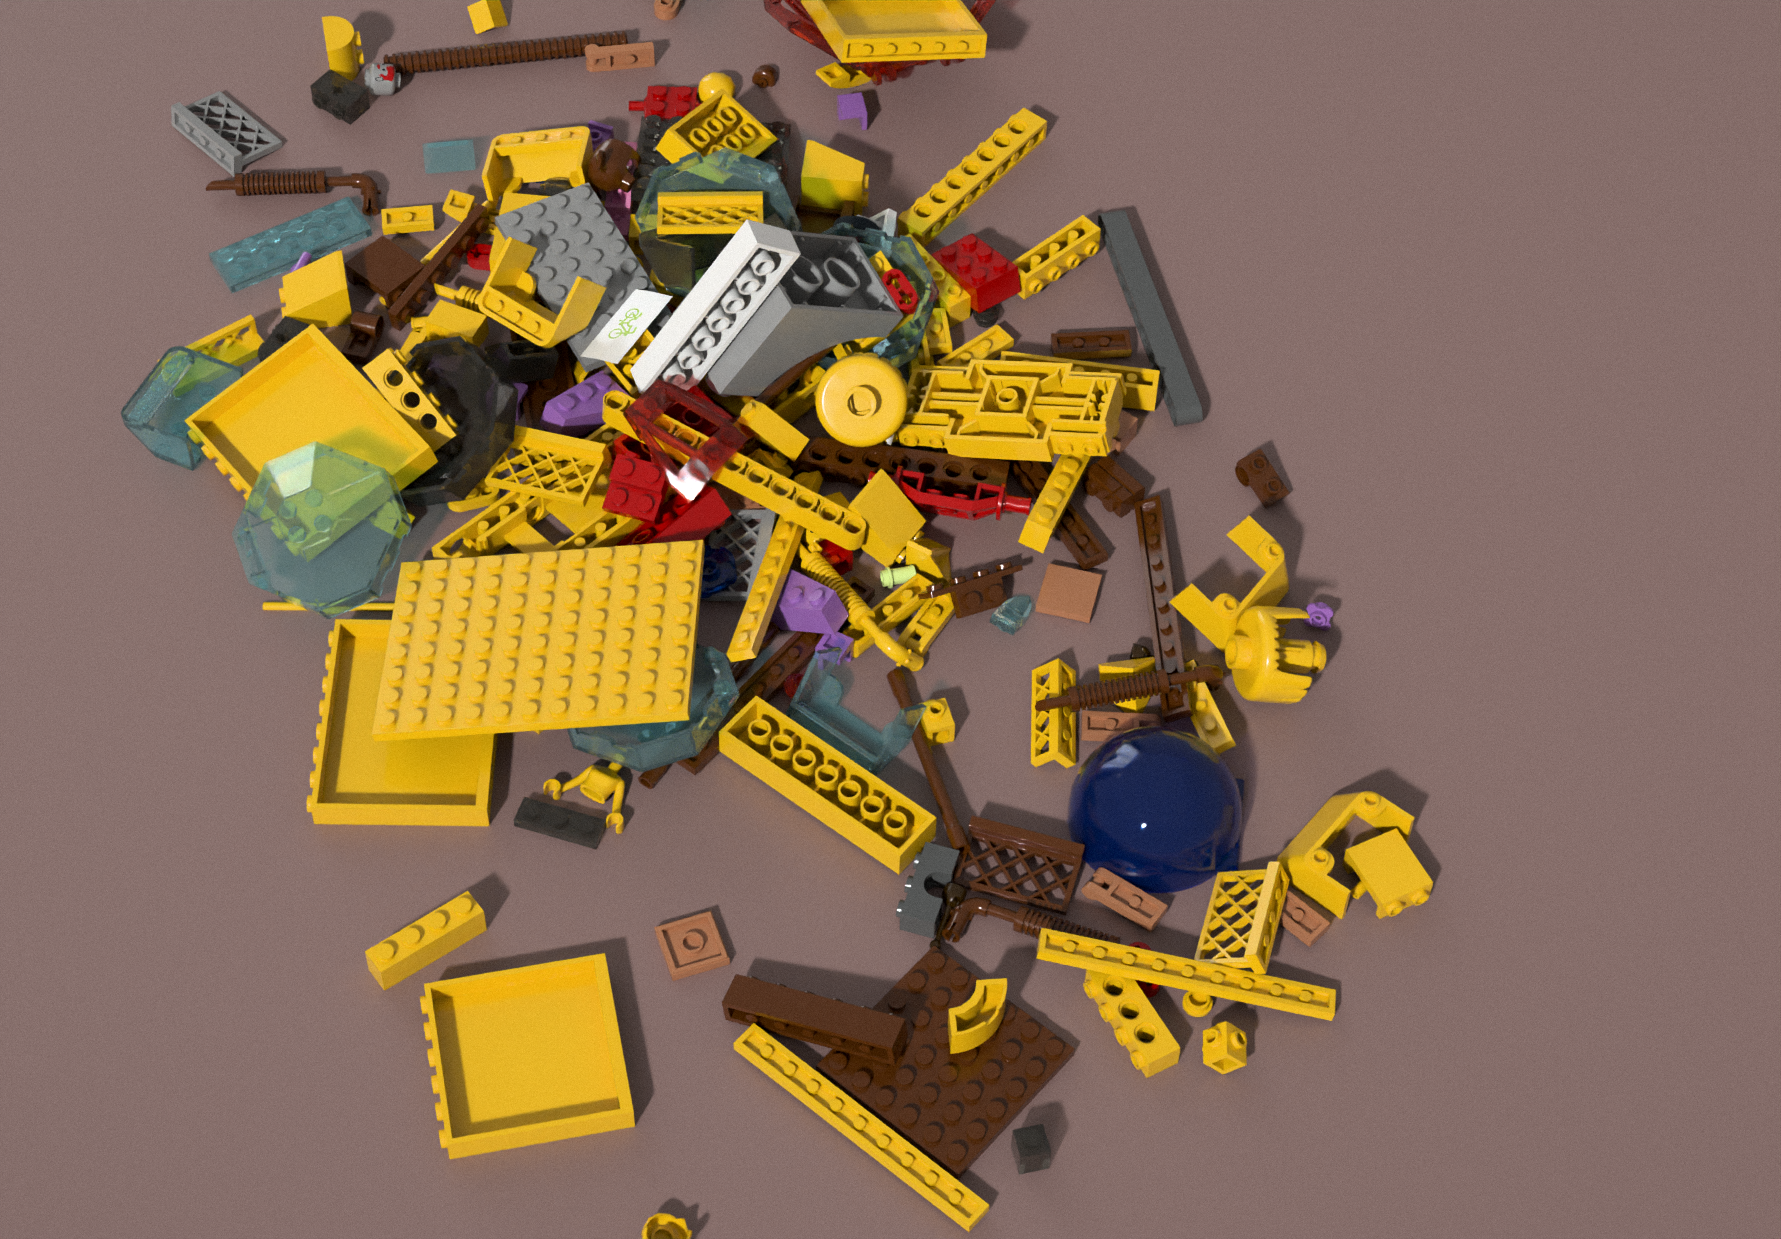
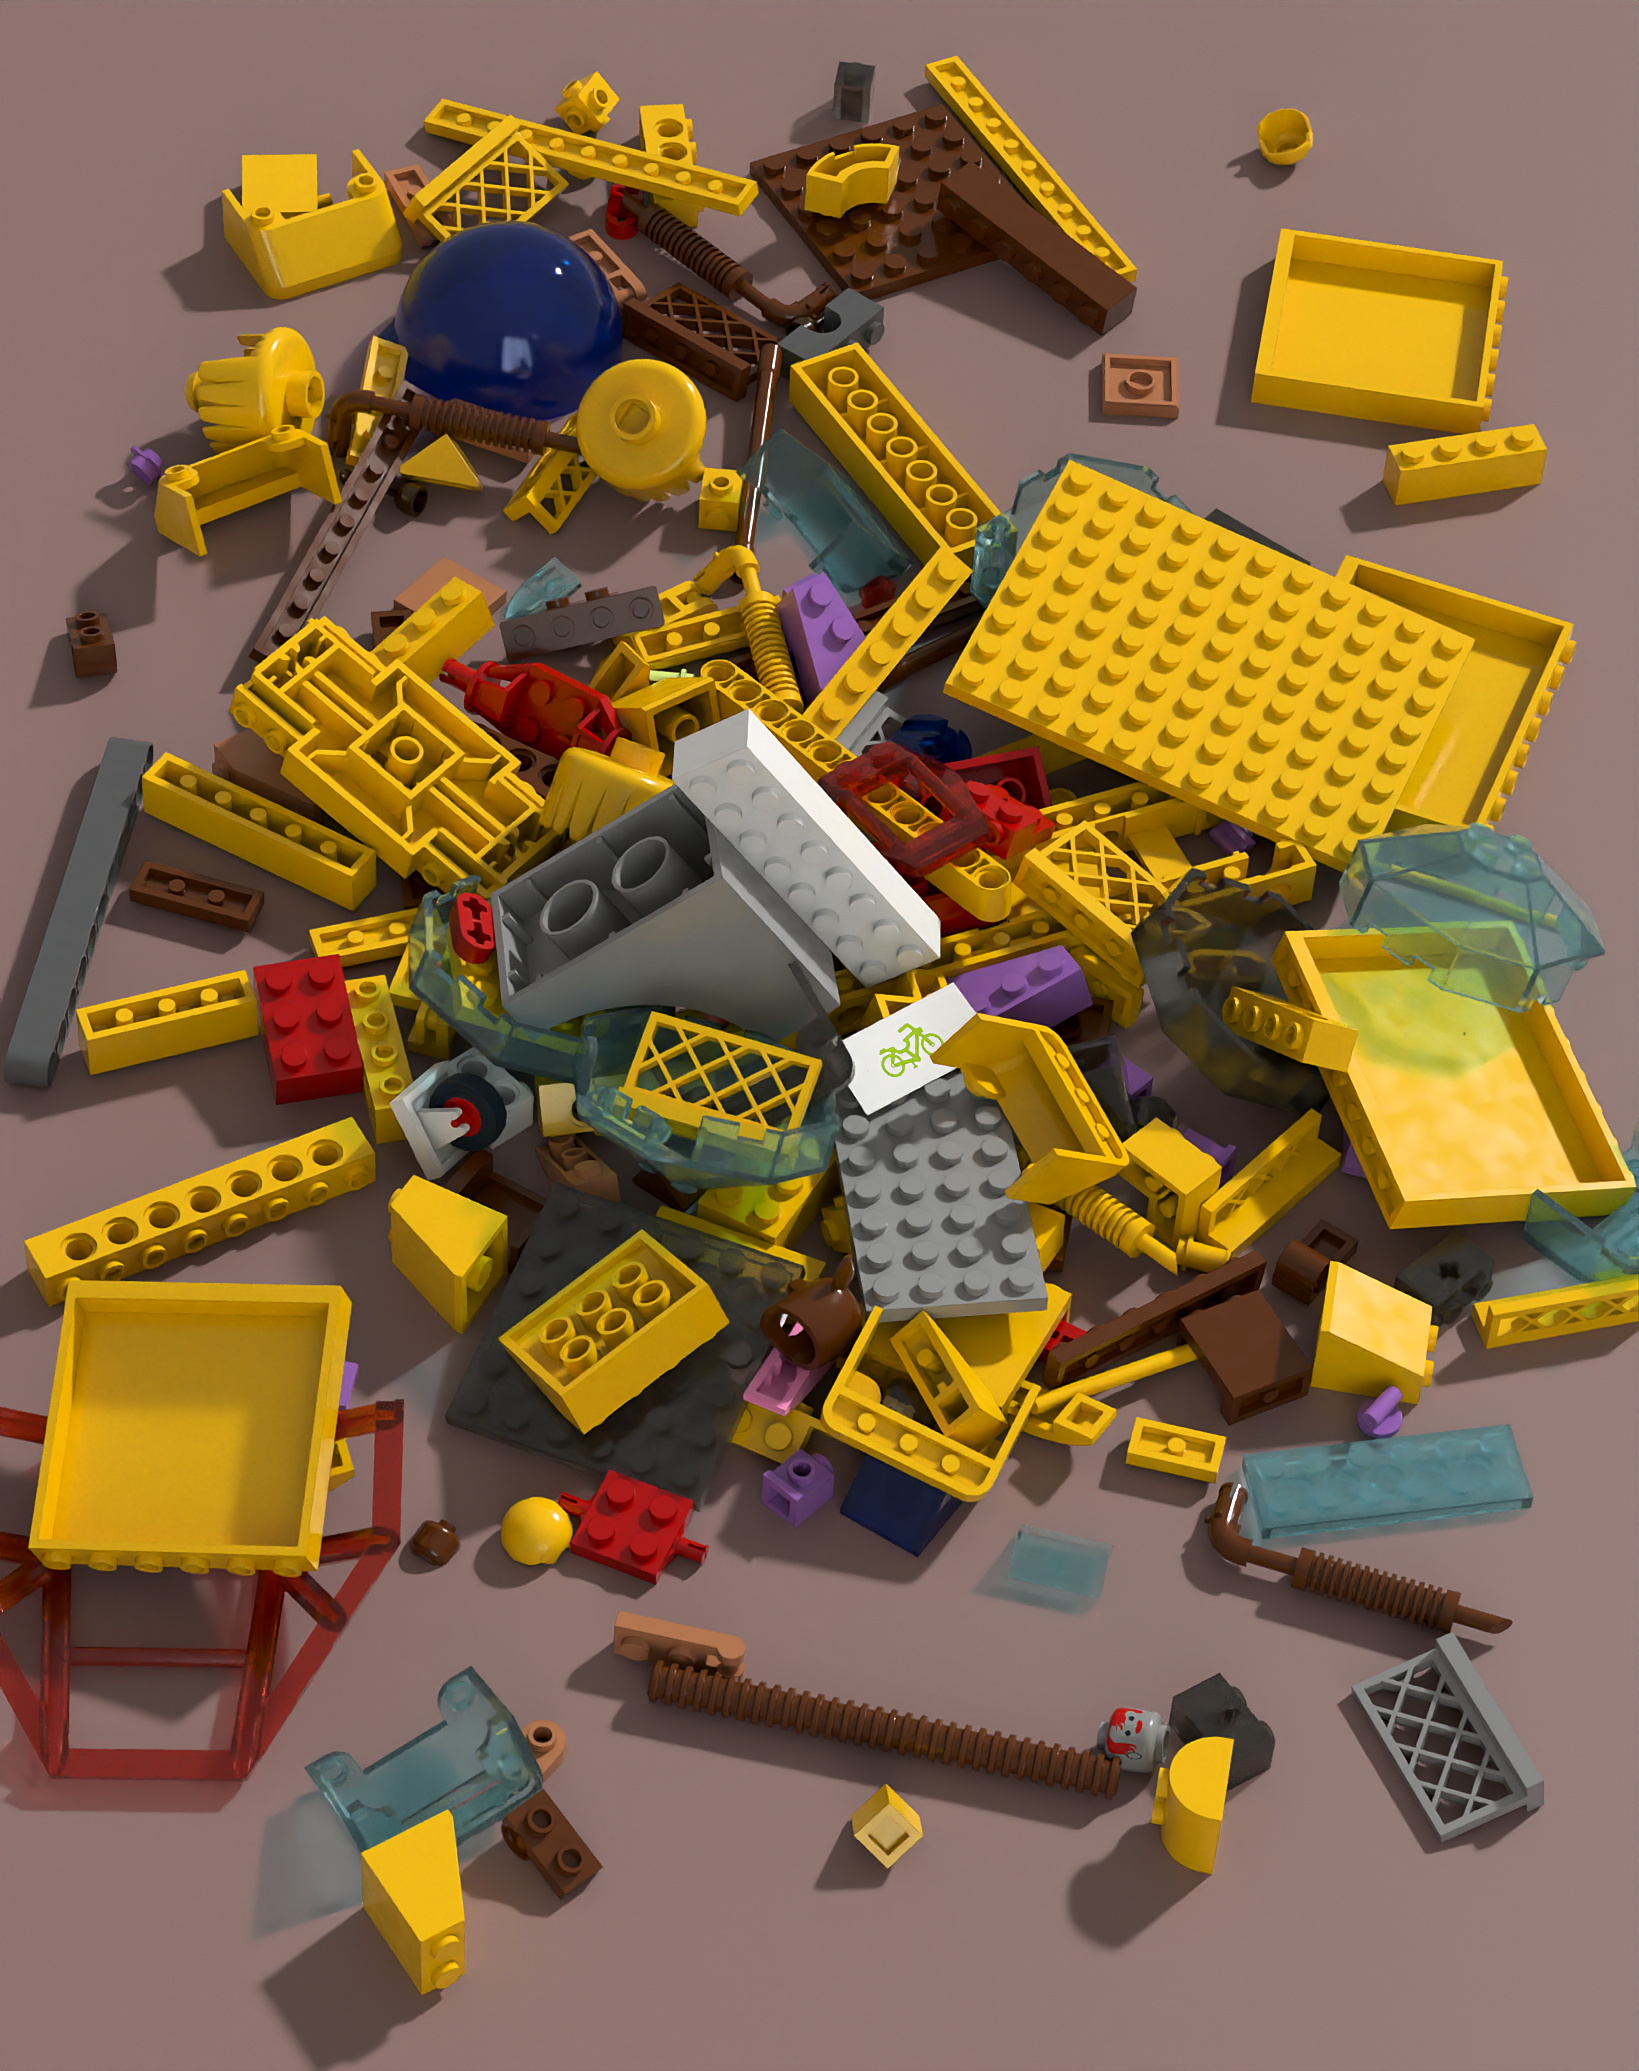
camera: 160 degrees left, 5 degrees down
(525, 175) = (948, 1384): none -> yellow slope
(1005, 709) = (643, 429): none -> yellow piece

